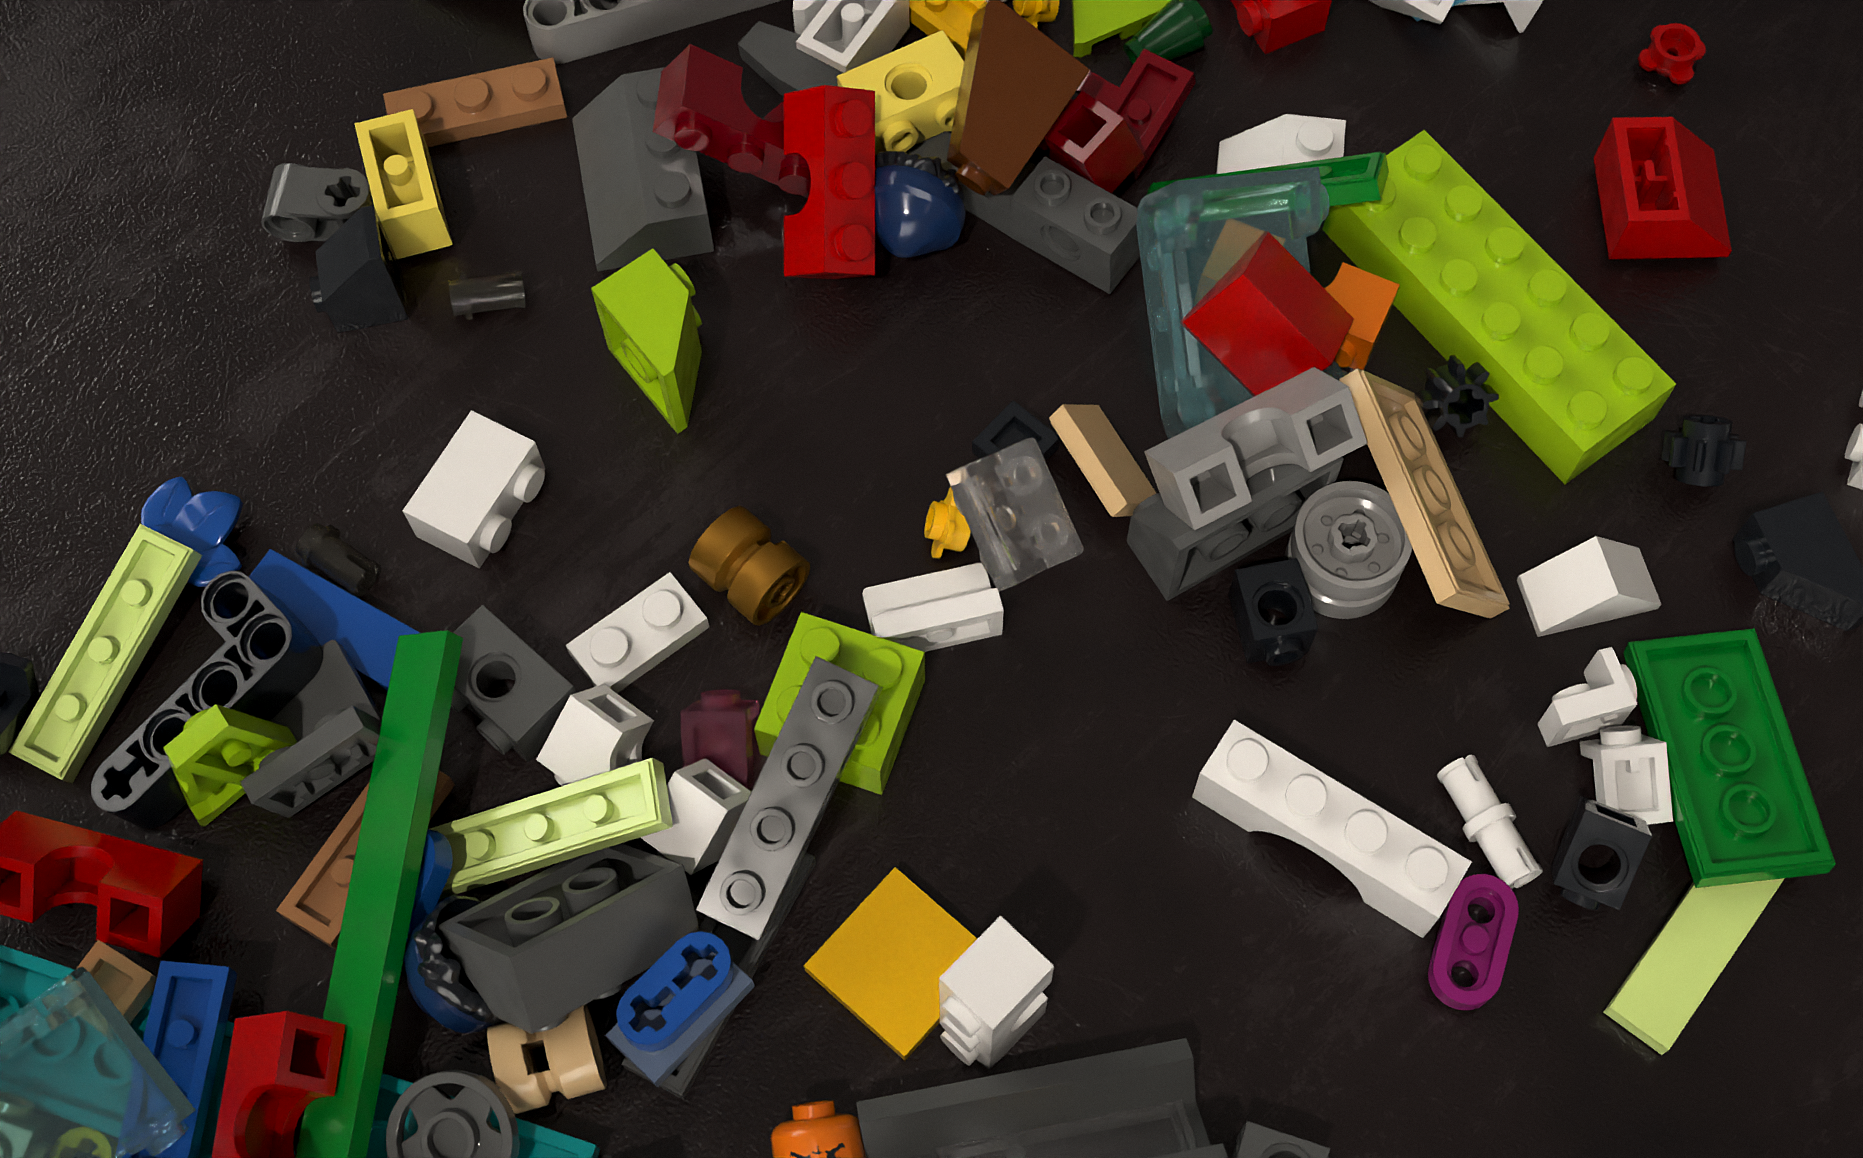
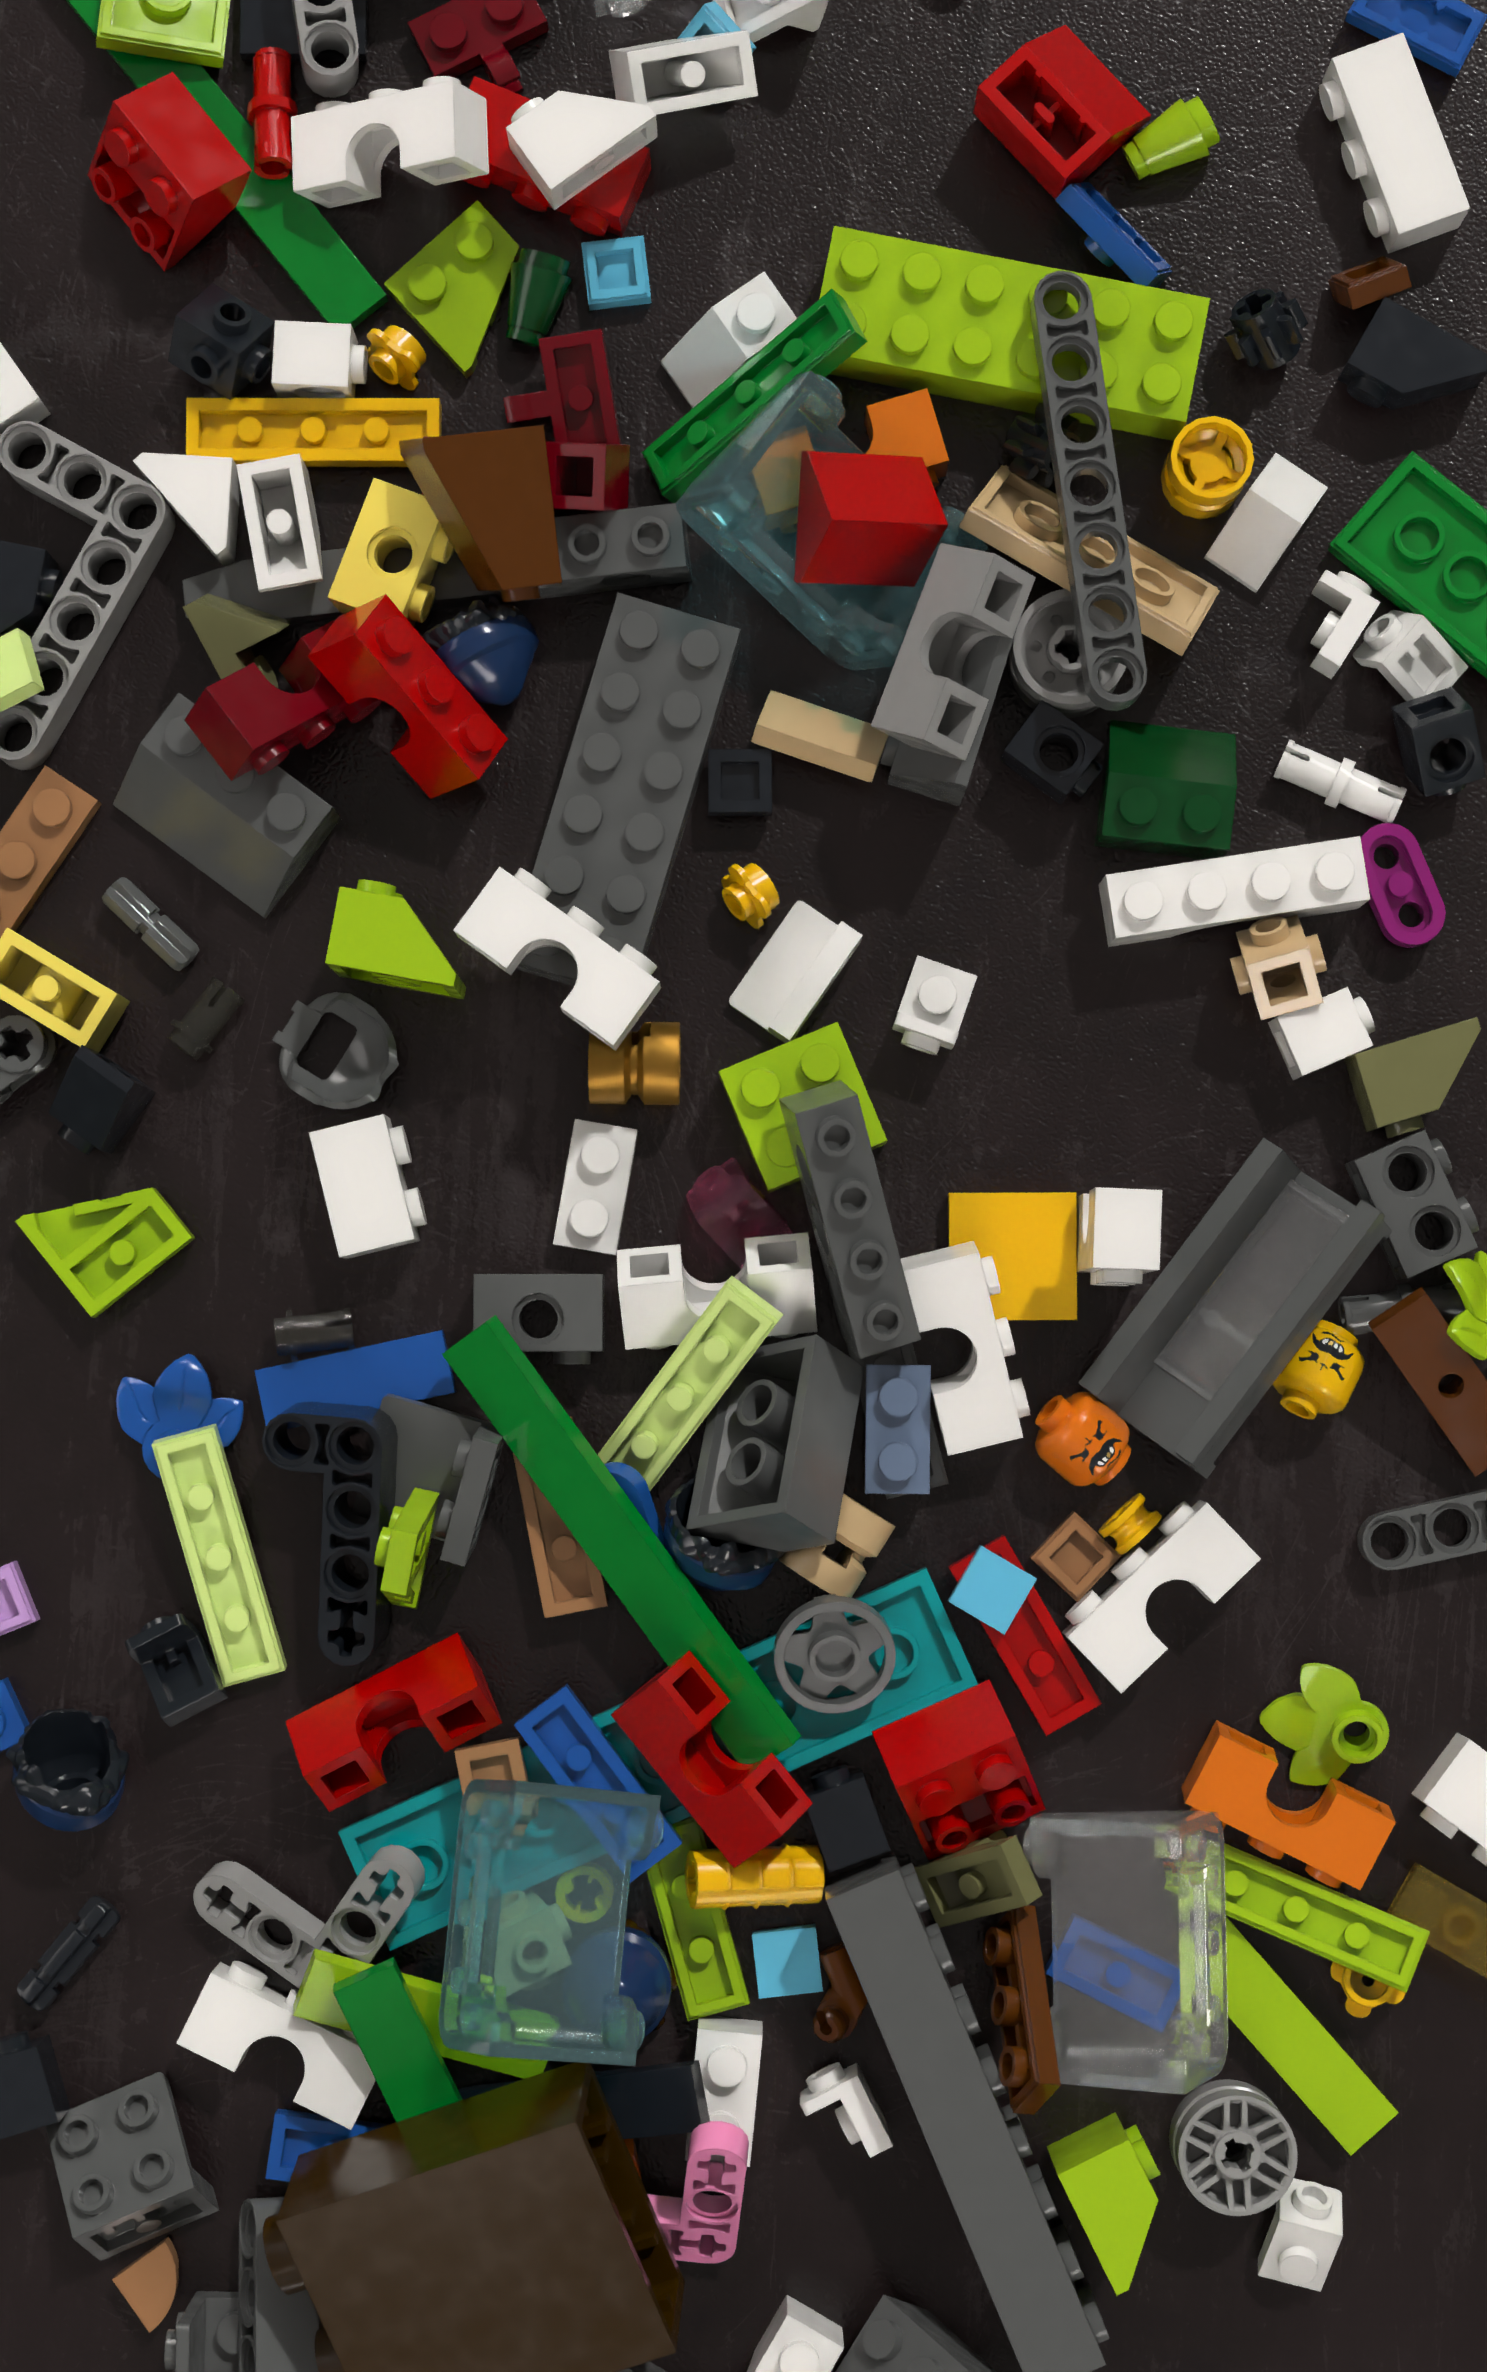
camera: 40 degrees left, 20 degrees up
(266, 381) = (107, 1244): none -> lime wing
(516, 213) = (158, 931): none -> dark grey piece
(555, 412) = (362, 1068): none -> dark grey helmet
(664, 979) = (909, 1424): blue beam -> none
(750, 373) = (516, 919): none -> white arch
(761, 65) = (230, 630): none -> olive slope
(772, 1048) = (978, 1401): none -> white arch
(917, 385) = (632, 773): none -> dark grey brick
(1013, 720) = (933, 1006): none -> white bracket
(1015, 513) = (799, 848): clear bracket -> none
(1239, 68) = (616, 273): none -> medium azure tile
(1301, 929) = (1279, 966): none -> tan brick
(1310, 1002) = (1323, 1033): none -> white brick
(1337, 711) = (1167, 790): none -> dark green slope
(1356, 1099) = (1409, 1076): none -> olive slope
(1450, 447) = (1079, 520): none -> dark grey beam
(1573, 502) = (1207, 467): none -> yellow wheel
(1631, 300) = (1111, 236): none -> blue plate
(1735, 277) = (1172, 139): none -> lime cone
(1815, 479) = (1369, 282): none -> reddish brown tile

